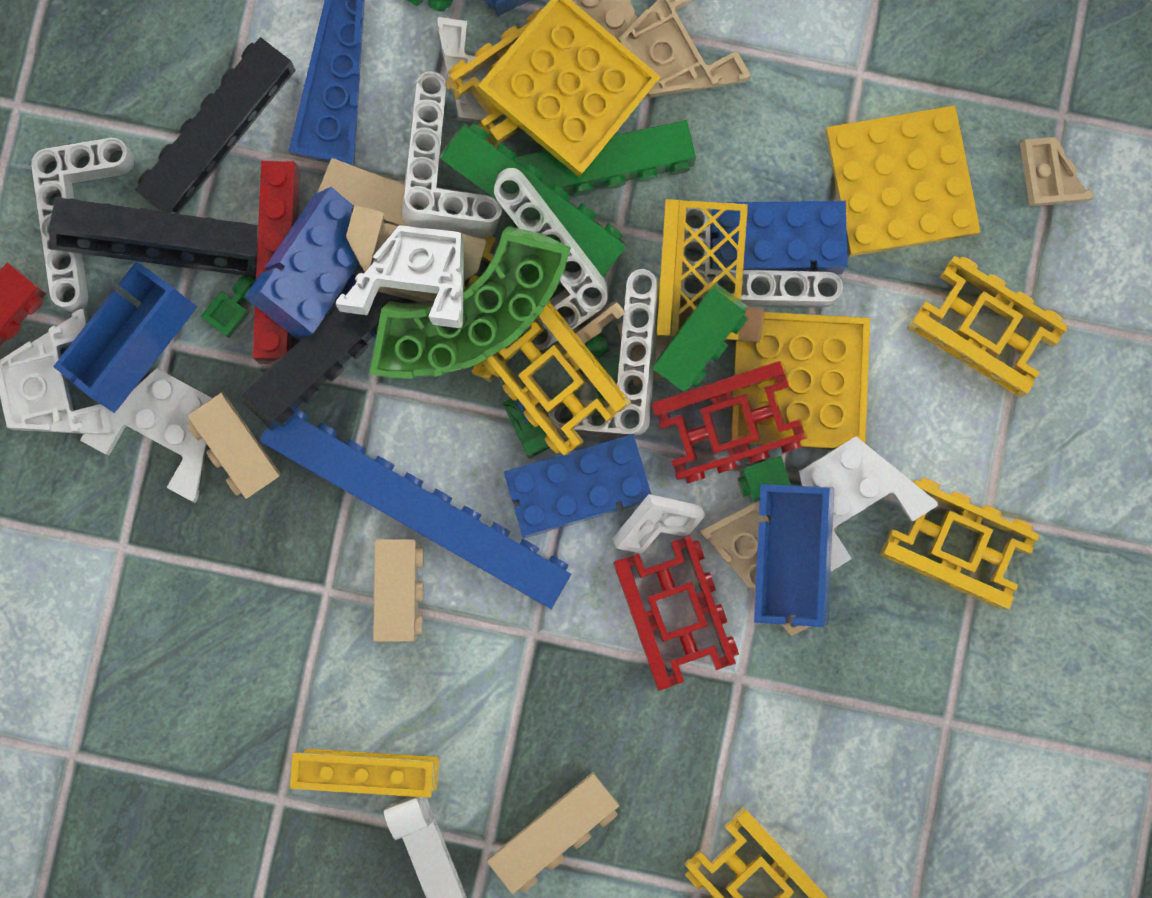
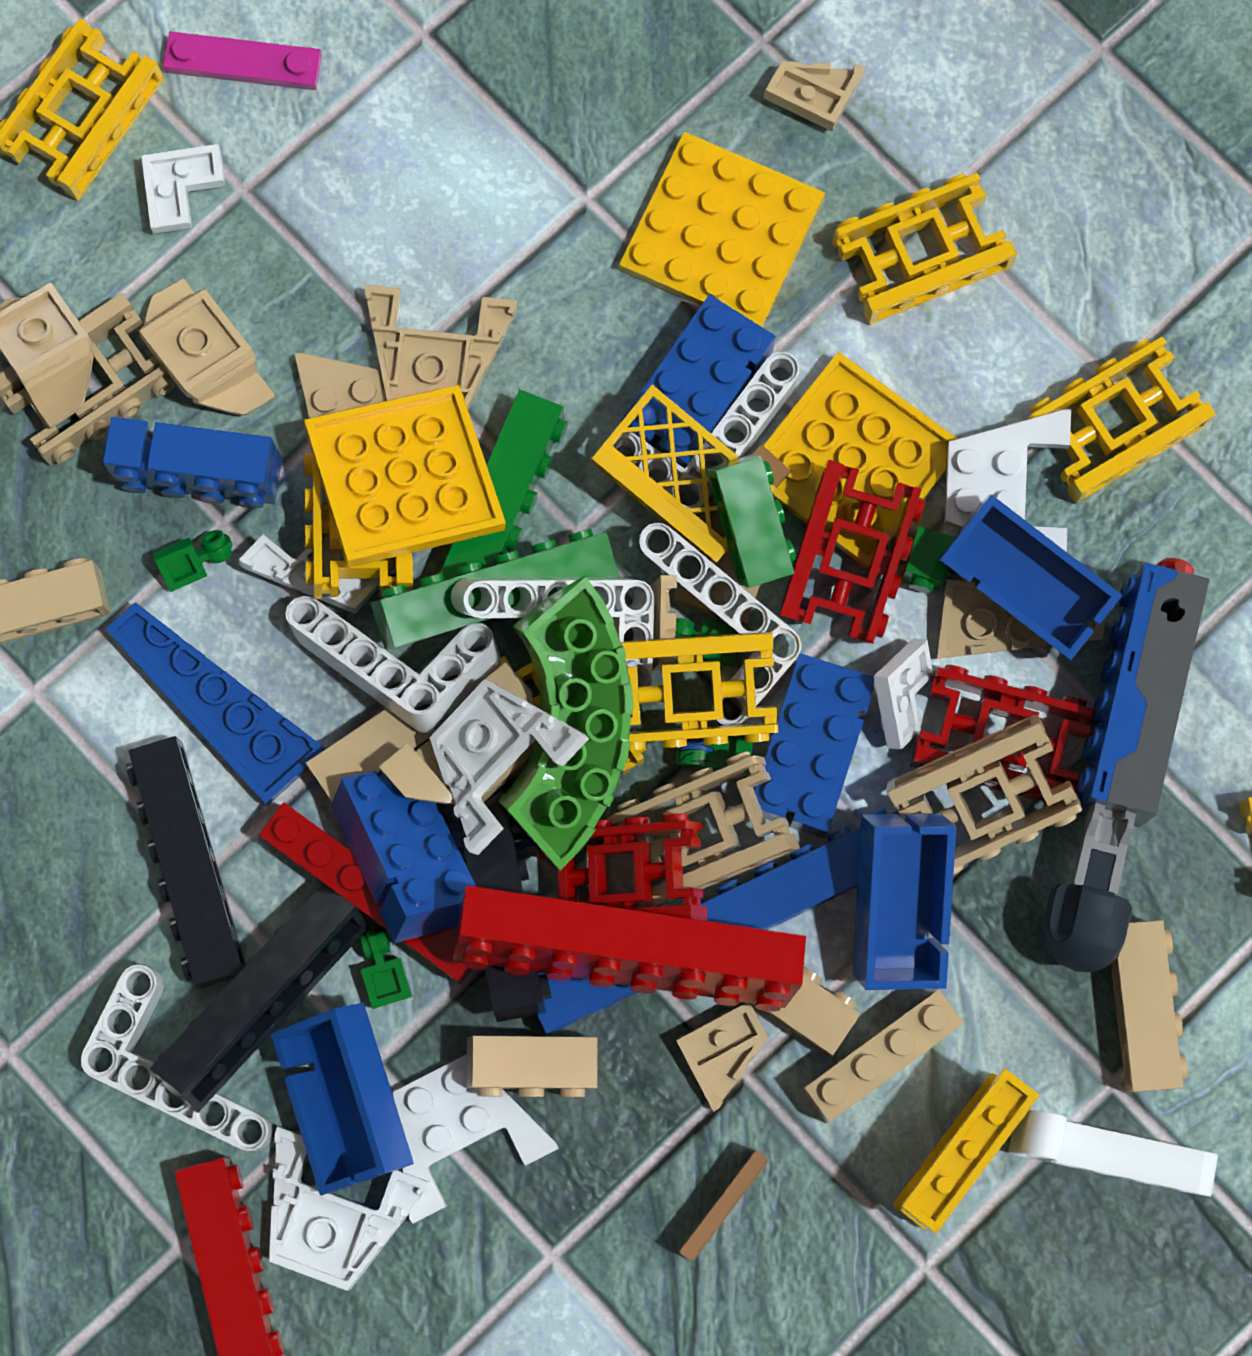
camera: 55 degrees left, 5 degrees down
(227, 636) = (723, 1205): none -> medium nougat tile
(330, 566) = (722, 1049): none -> tan wing
(341, 453) = (629, 949): none -> red brick
(375, 433) = (621, 841): none -> red fence
(397, 675) = (882, 1056): none -> tan brick
(449, 472) = (713, 861): none -> tan fence
(507, 619) = (902, 899): none -> blue piece
(582, 753) = (1126, 757): none -> piece
(630, 602) = (977, 764): none -> tan fence

